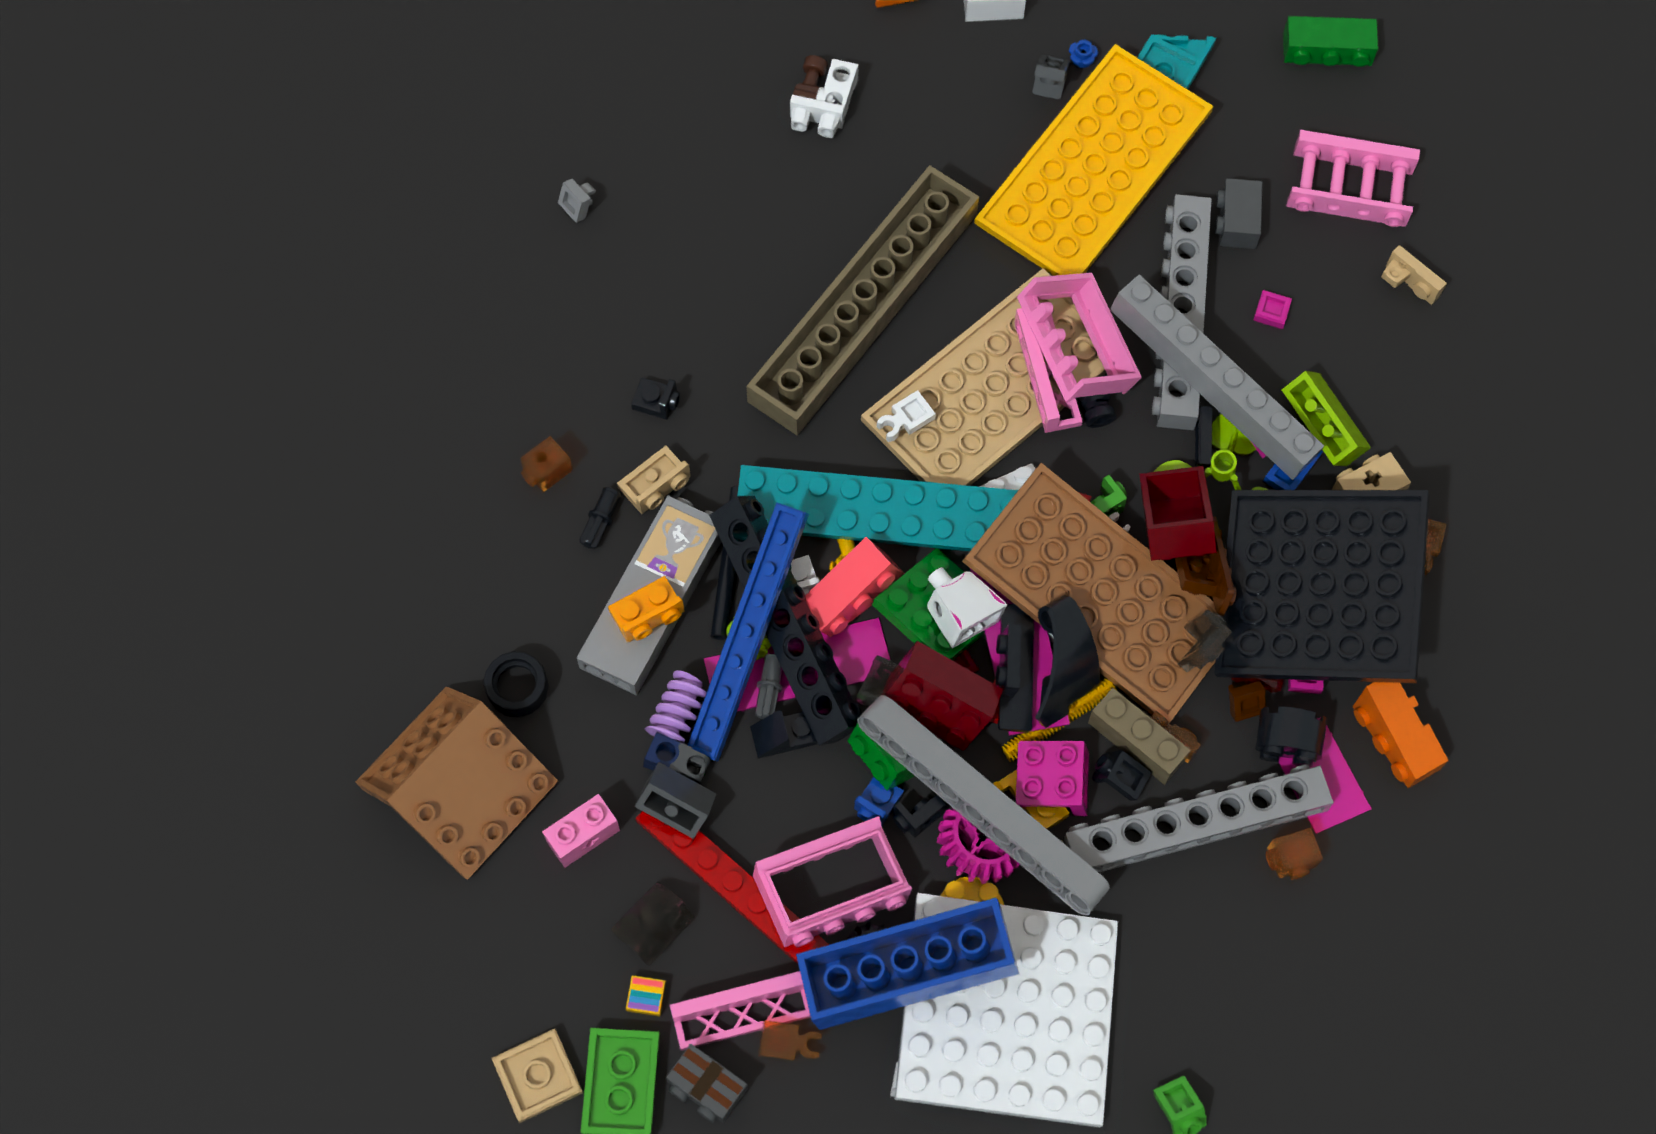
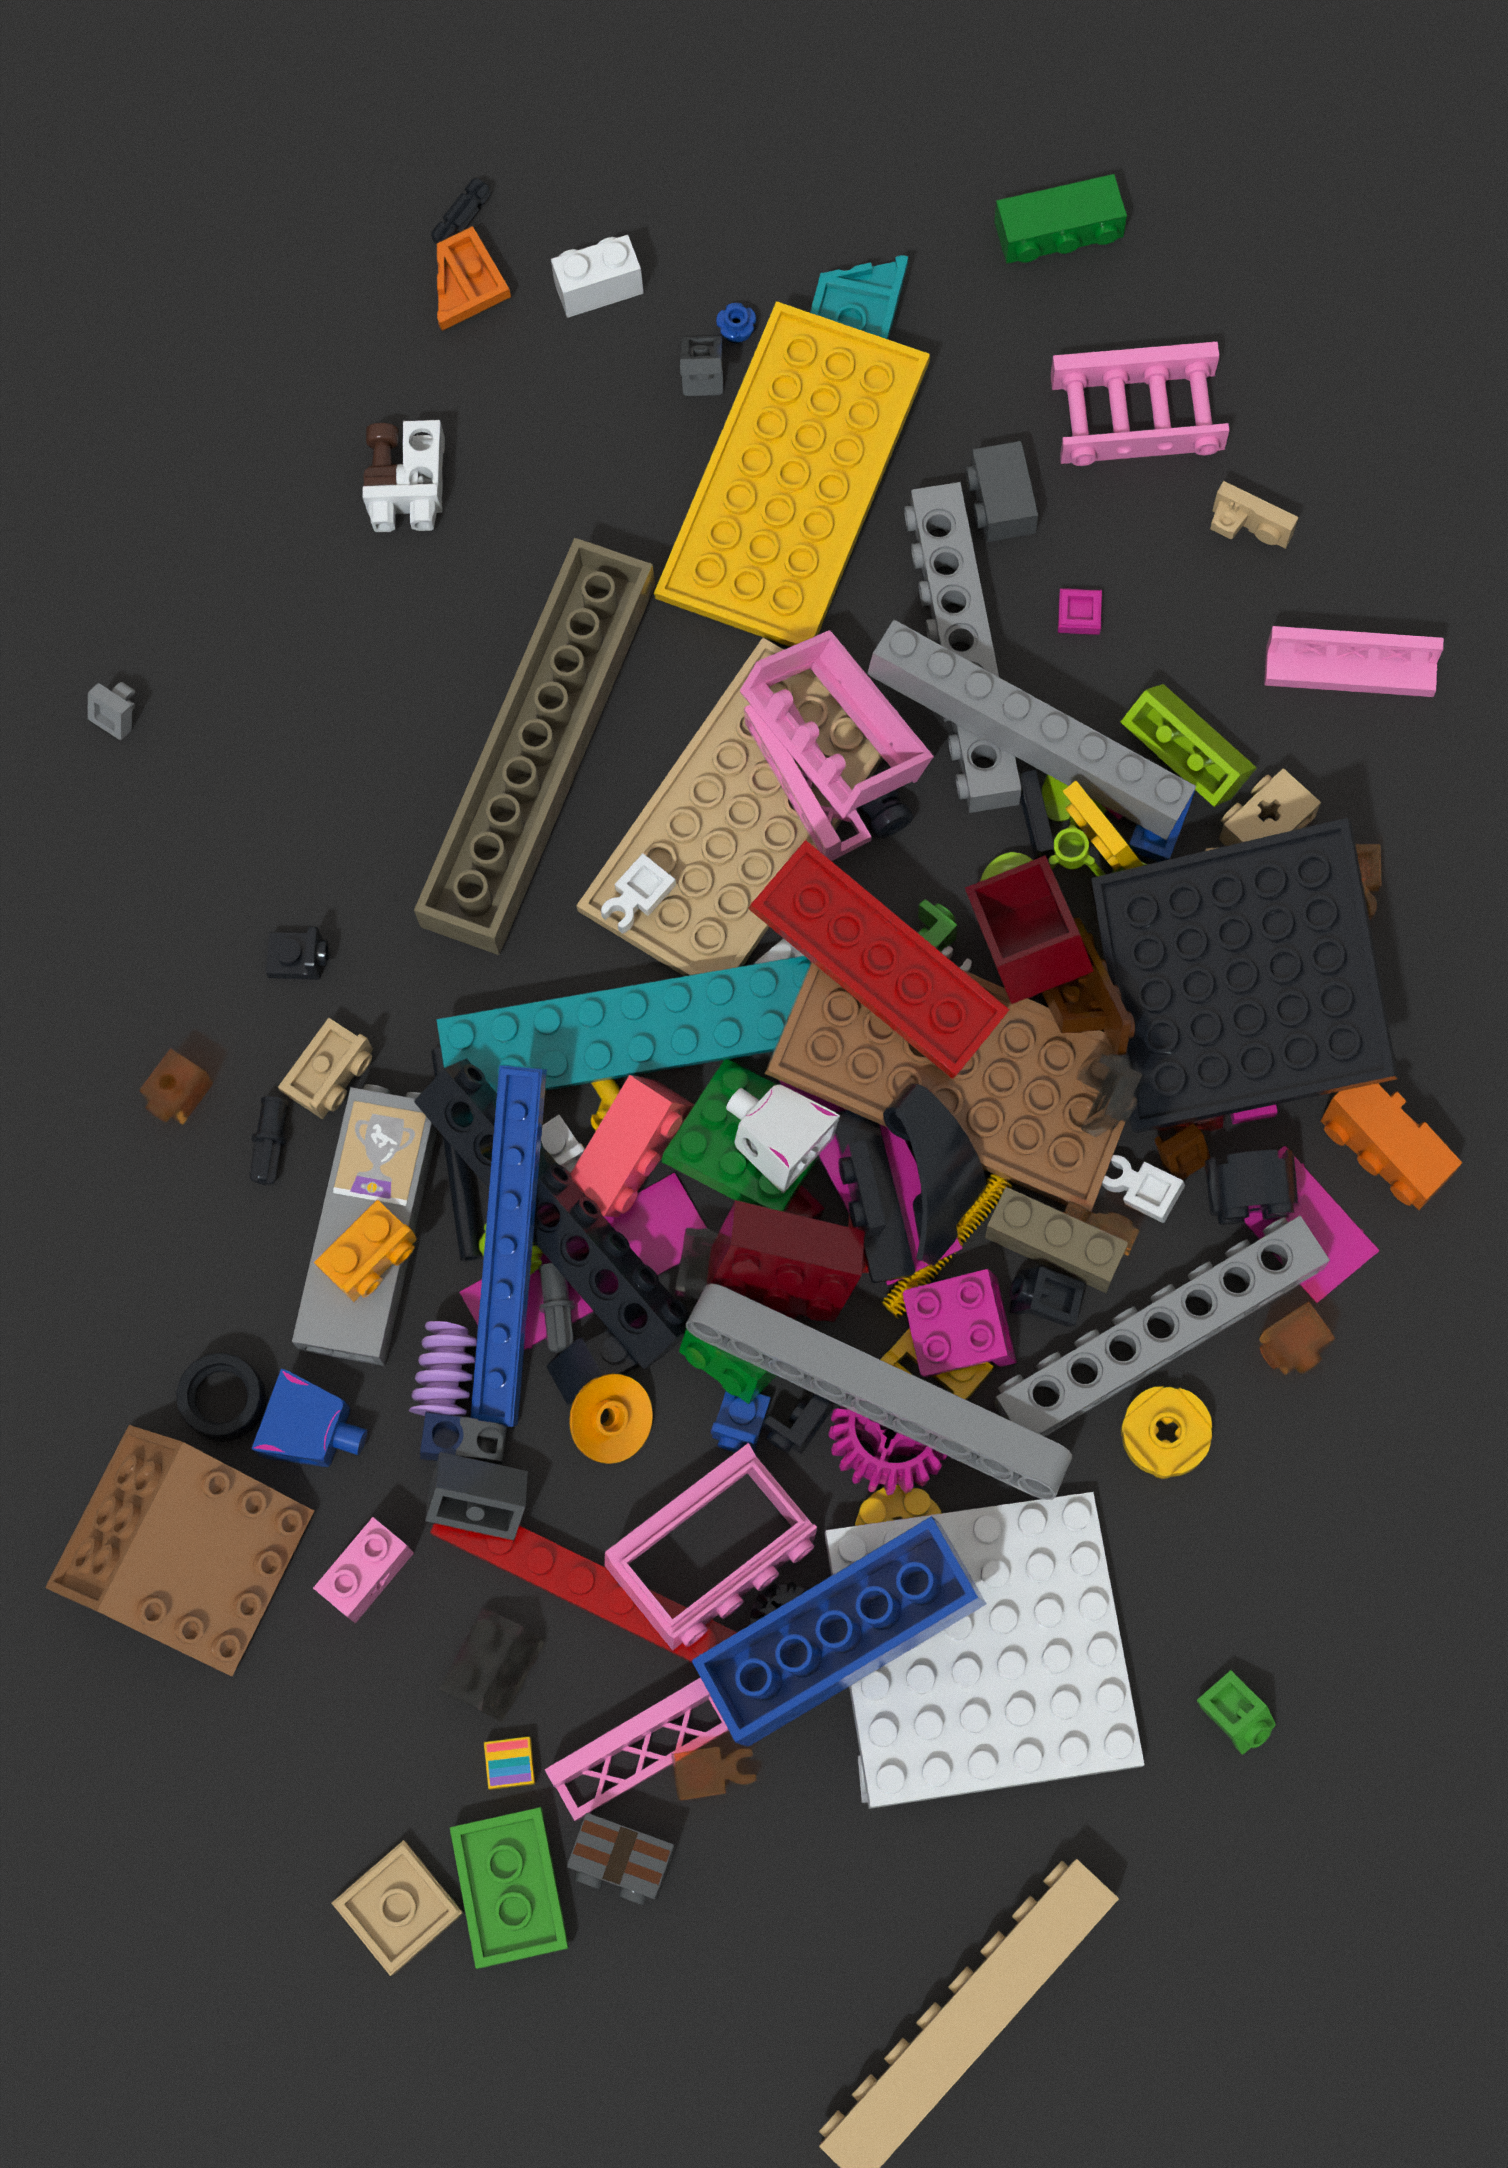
camera: 10 degrees left, 5 degrees up
(569, 719) = (305, 1424): none -> blue torso
(798, 777) = (627, 1421): none -> light orange dish
(1065, 503) = (878, 959): none -> red plate
(1176, 911) = (1163, 1457): none -> yellow plate
(1213, 720) = (1148, 1190): none -> white plate
(1246, 457) = (1095, 824): none -> yellow plate
(1459, 394) = (1352, 661): none -> bright pink fence

